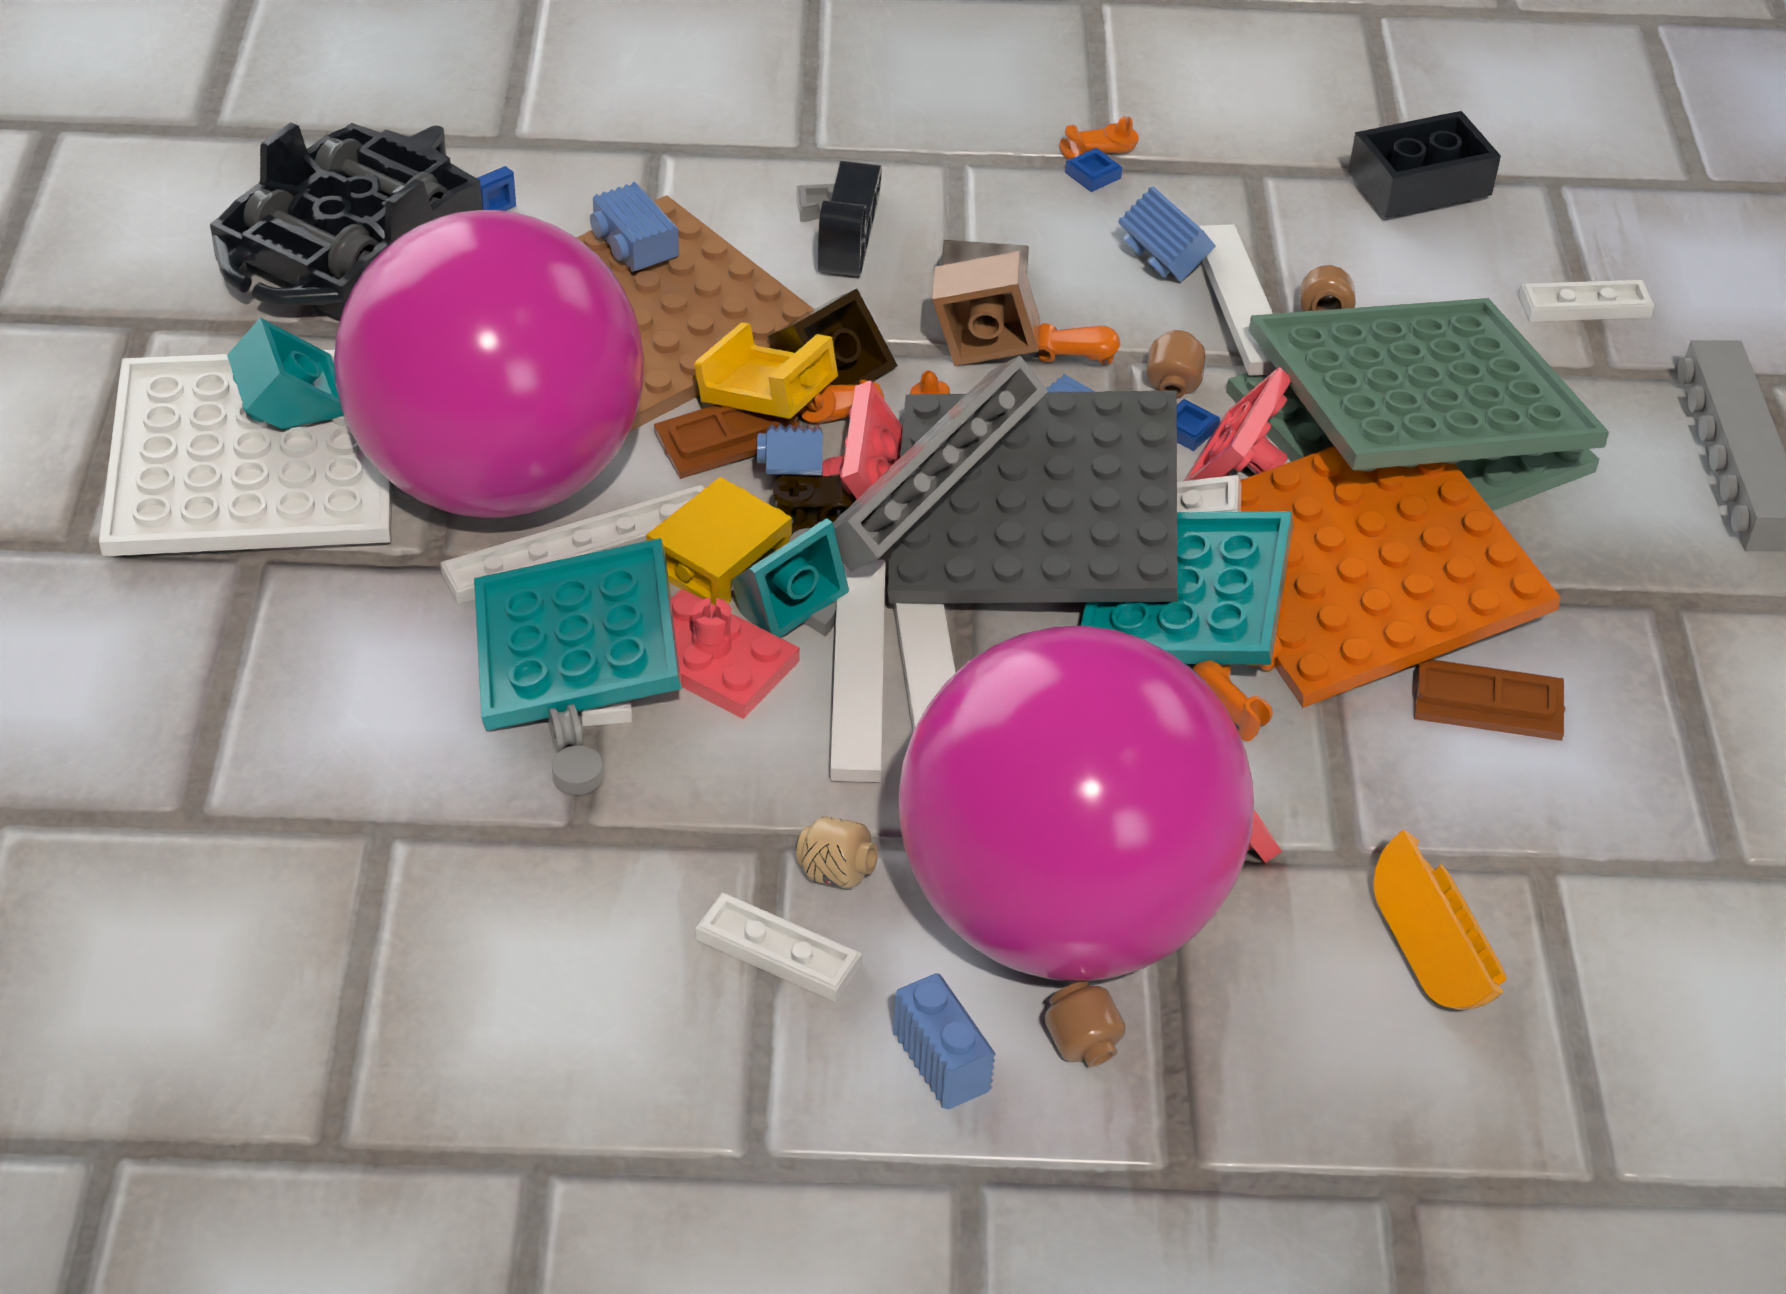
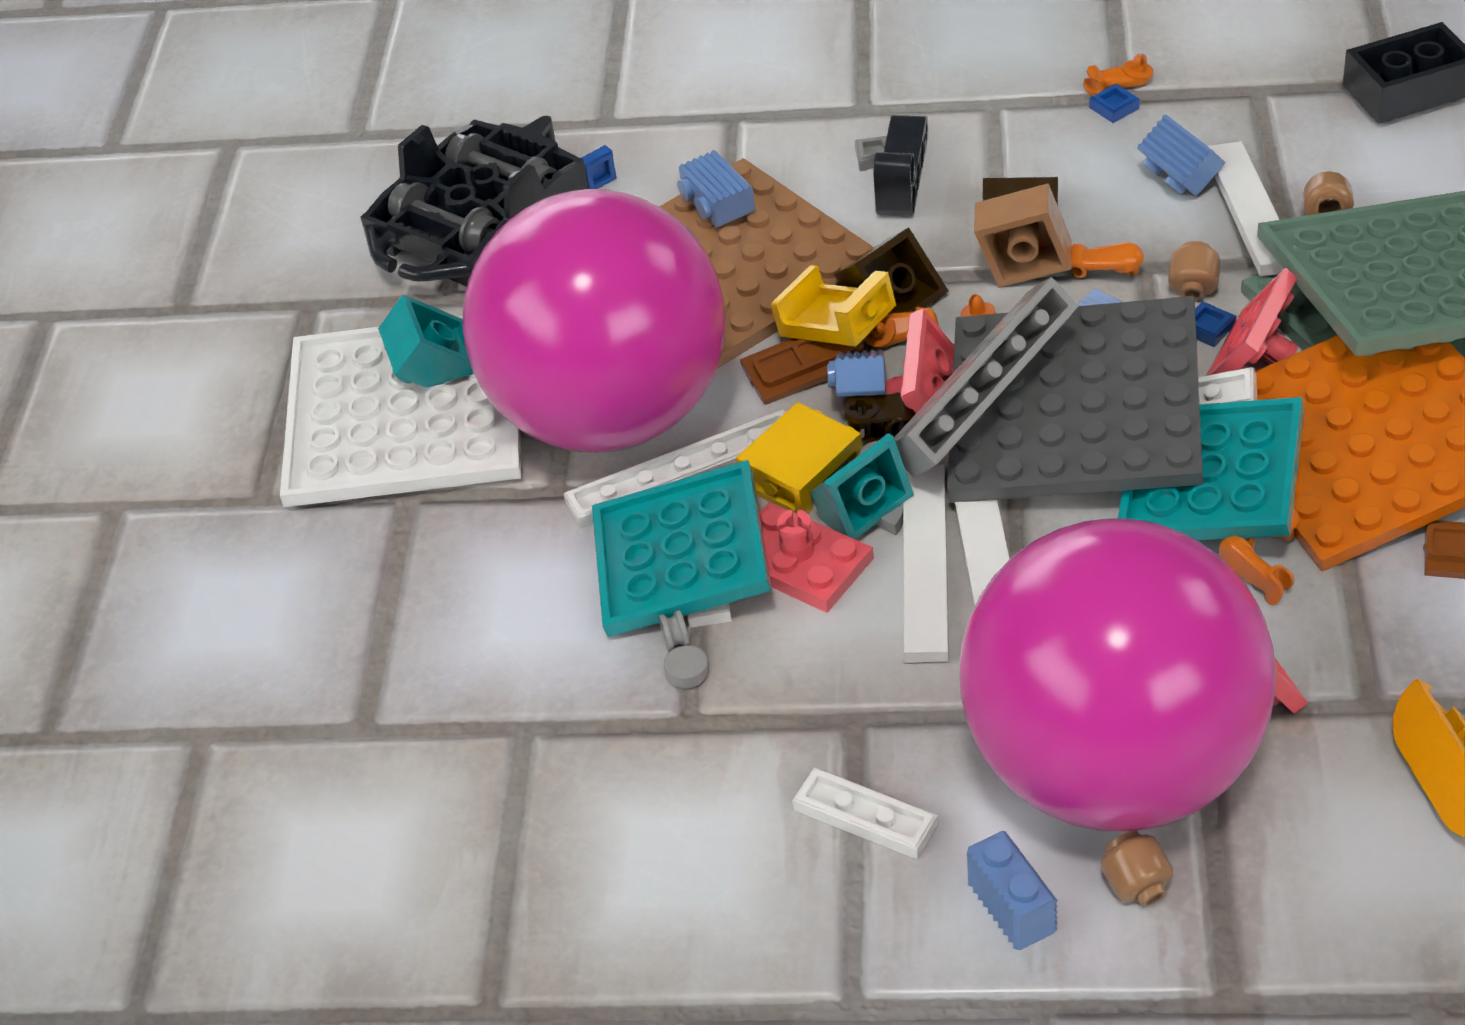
camera: 10 degrees right, 0 degrees up
(836, 852) = (911, 726): tan head -> none

